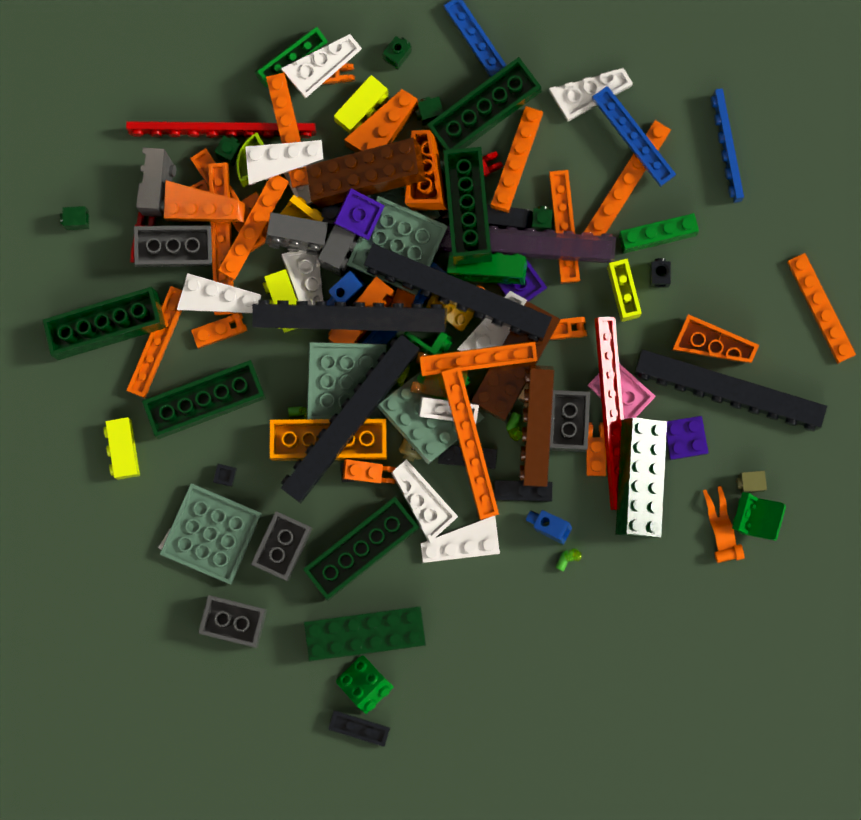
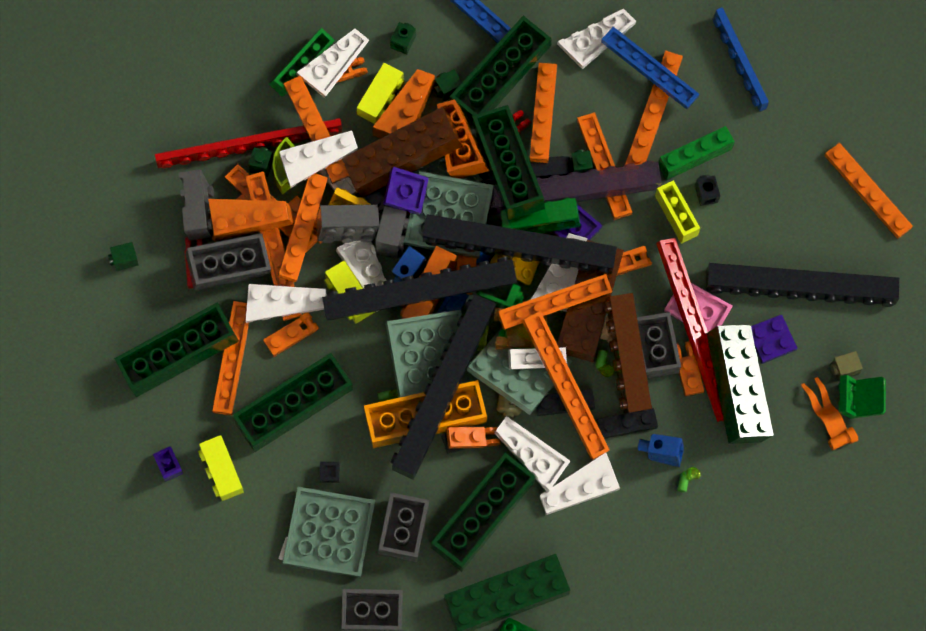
camera: 20 degrees left, 10 degrees down
(72, 433) = (168, 464): none -> dark purple slope
(711, 341) = (774, 242): orange wedge -> none

